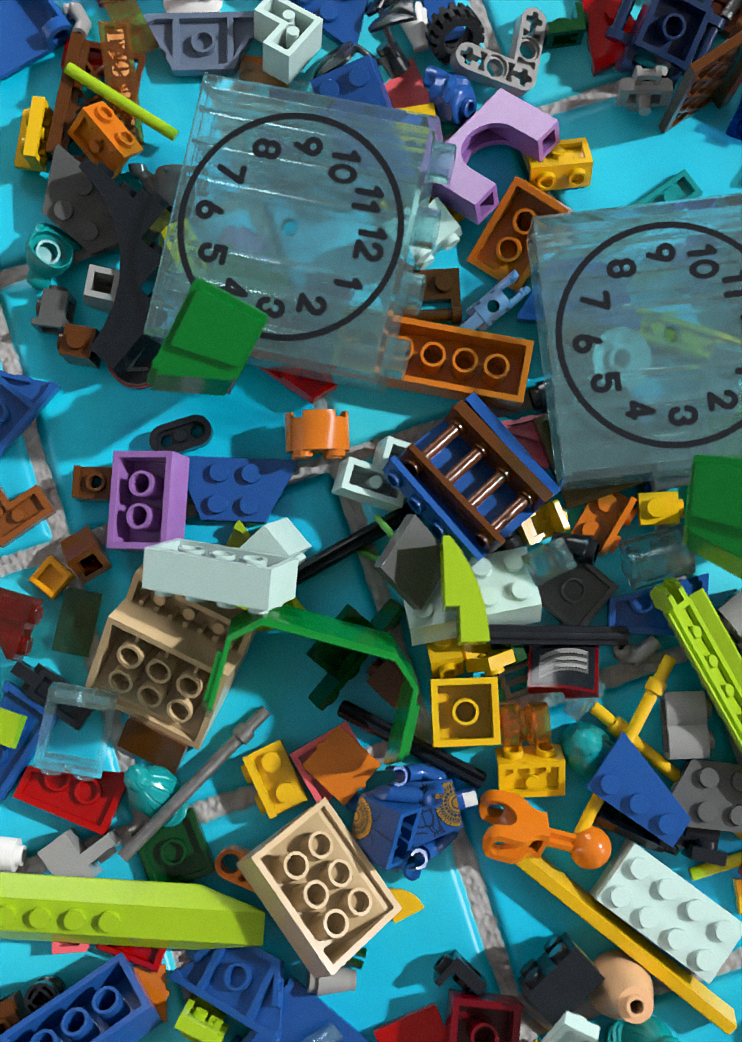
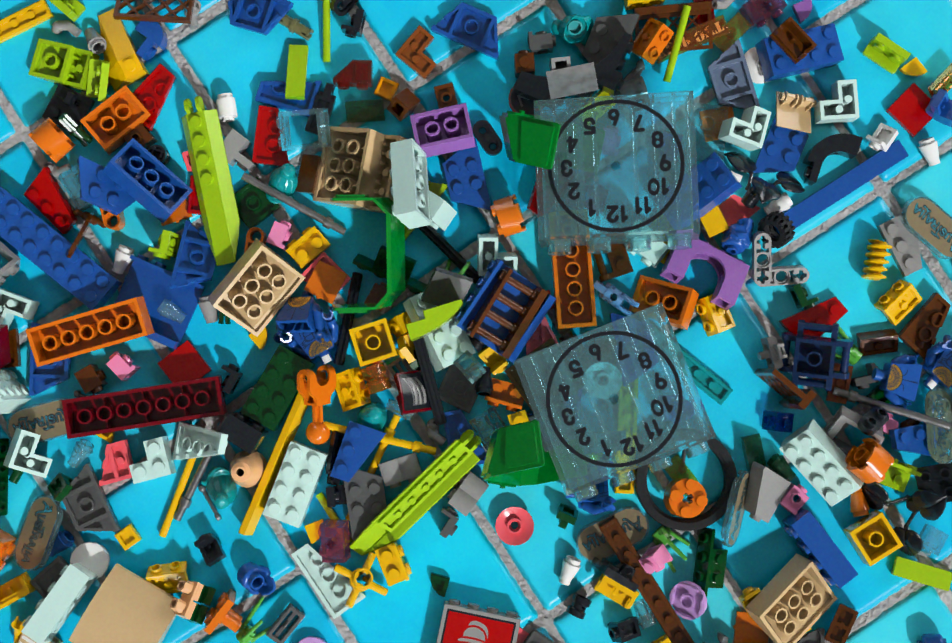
camera: 75 degrees right, 5 degrees up
(130, 270) = (572, 80): none -> flat silver sticker
(239, 820) = (280, 234): none -> bright pink brick
(498, 899) = (276, 388): none -> dark green brick

